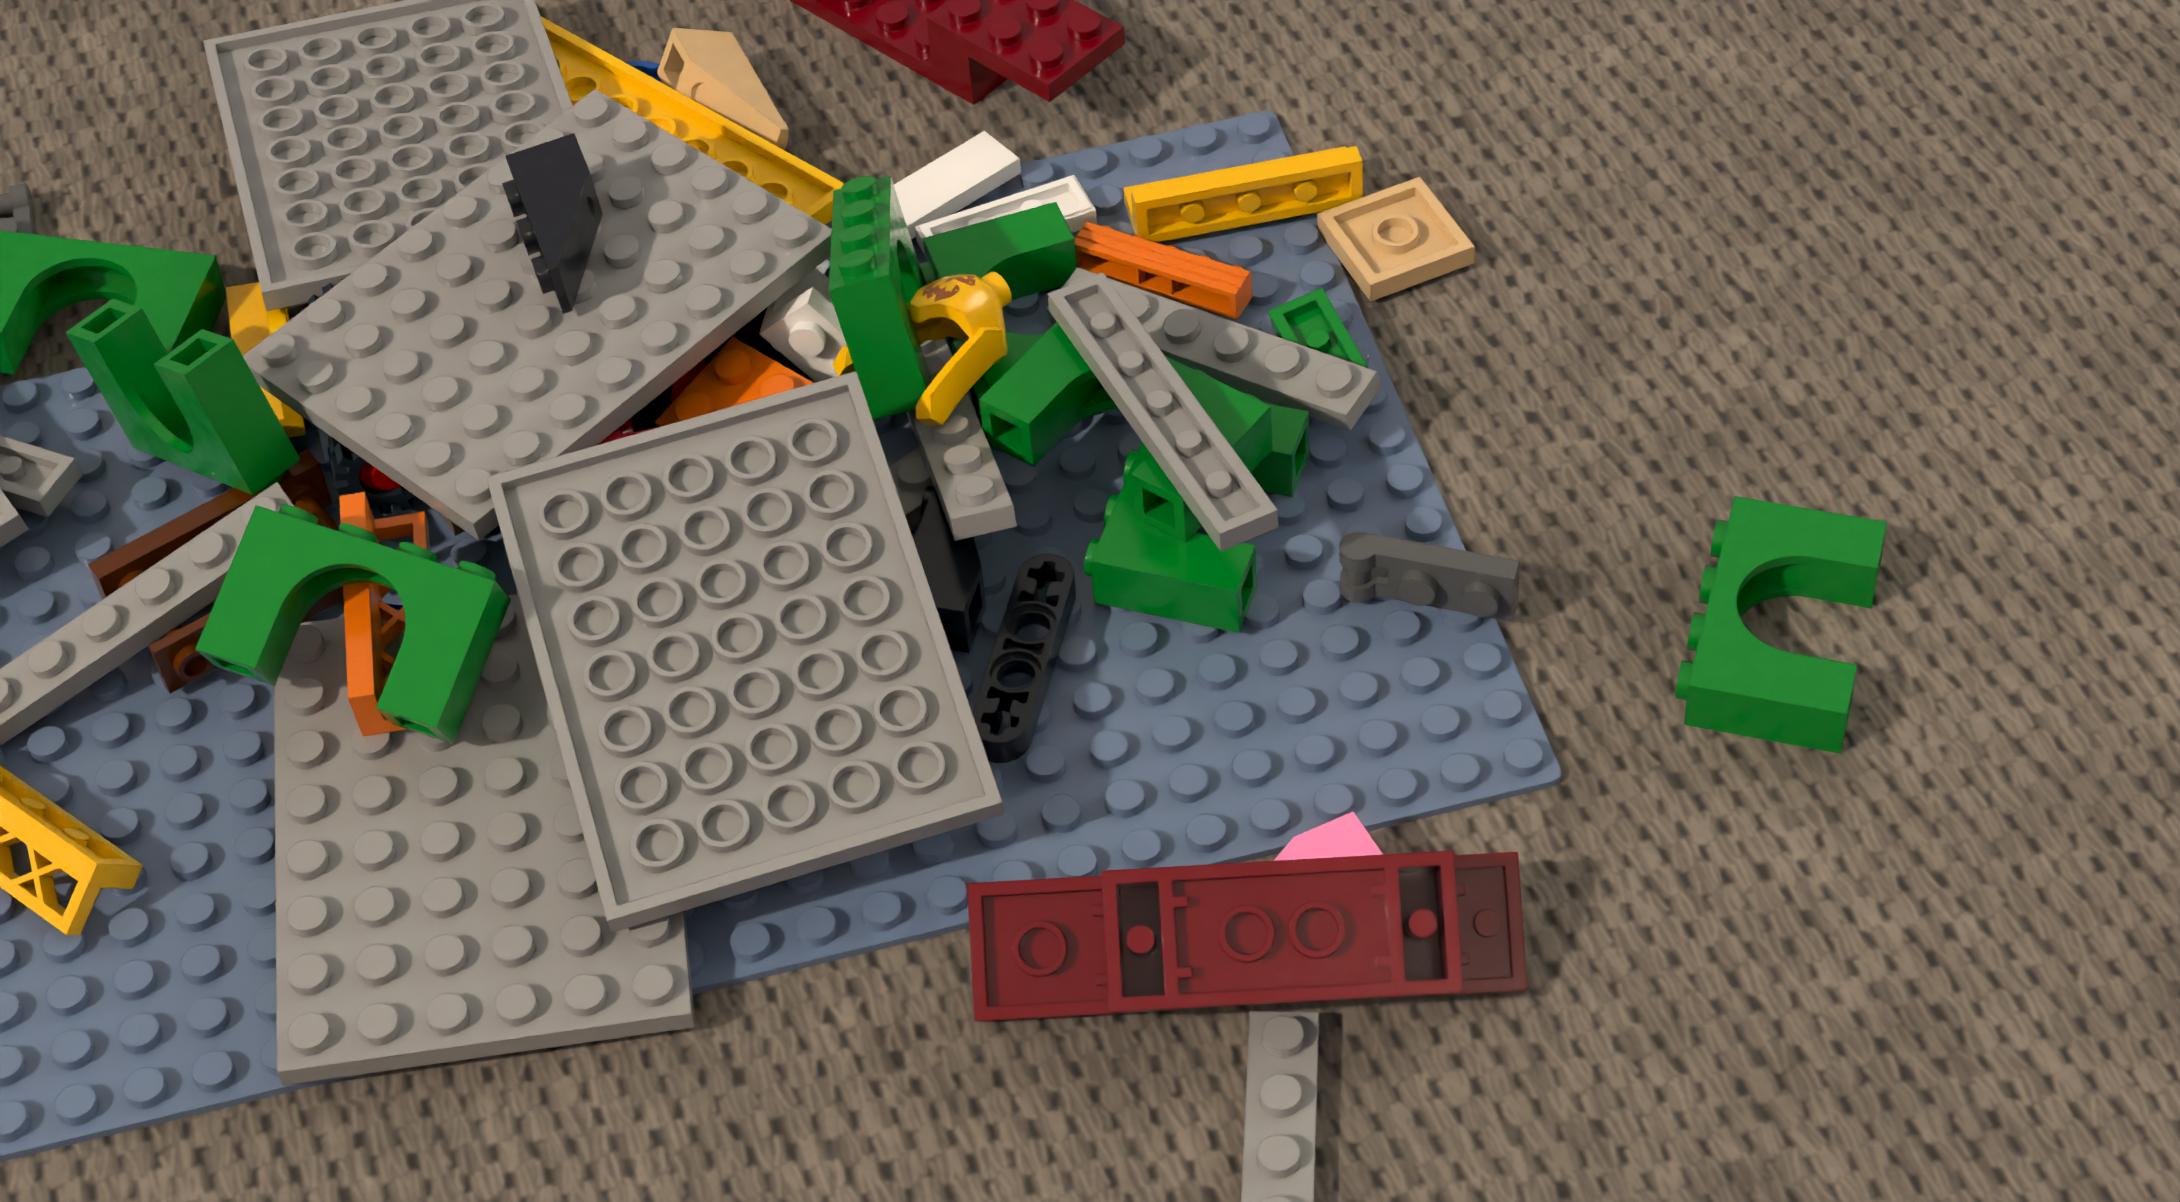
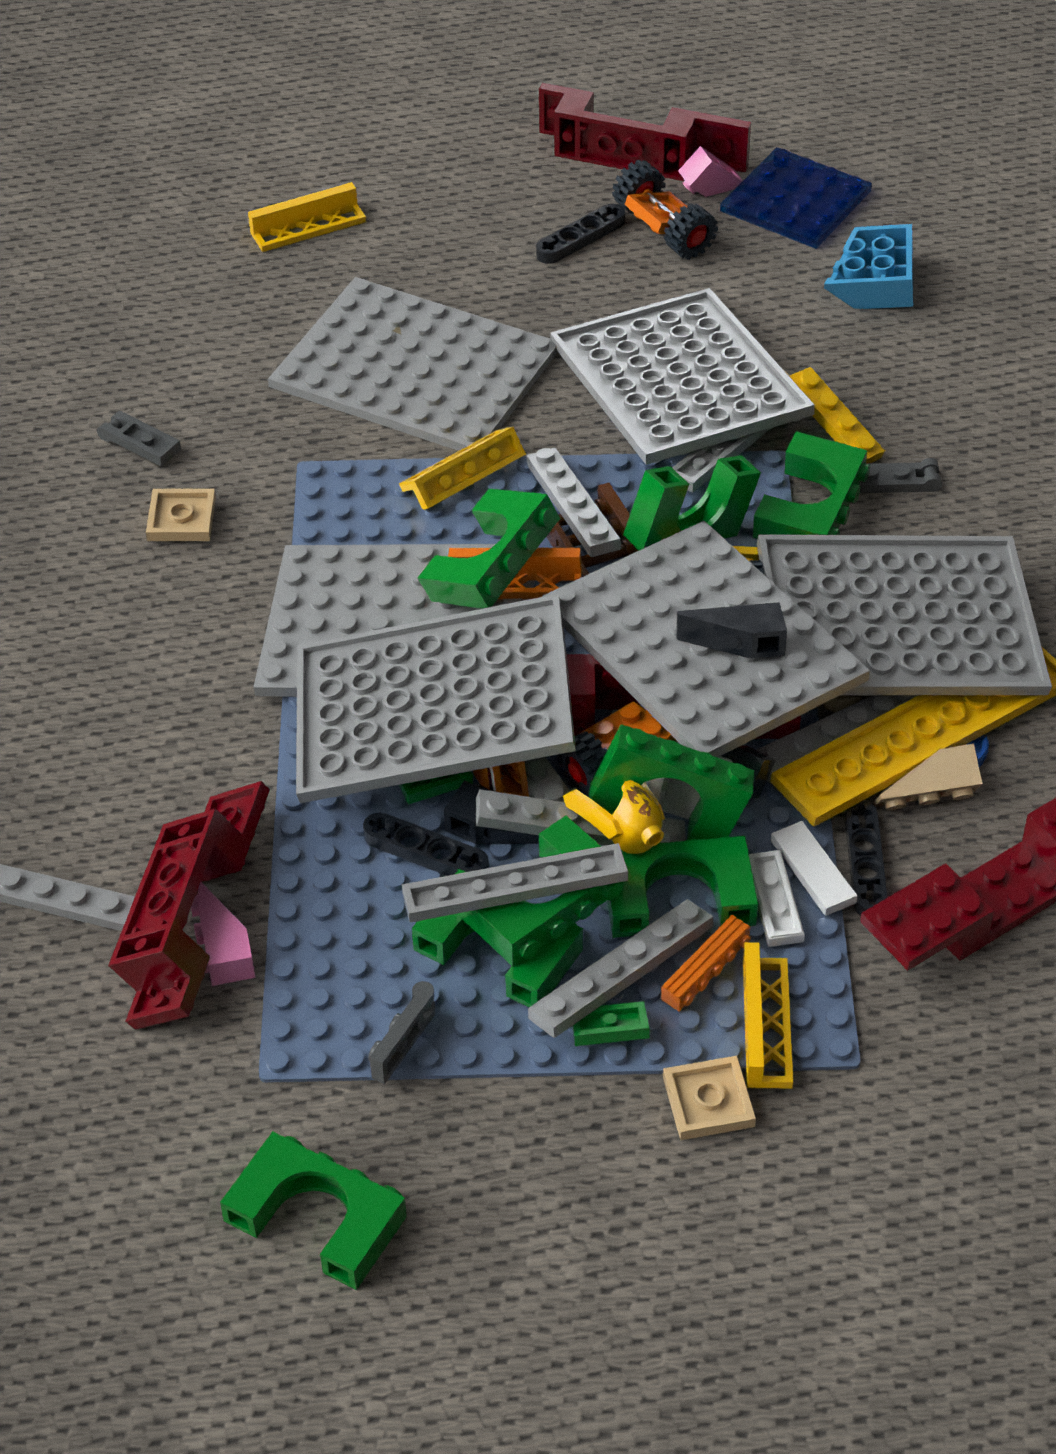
camera: 100 degrees right, 0 degrees up
(889, 145) = (863, 859): none -> black beam

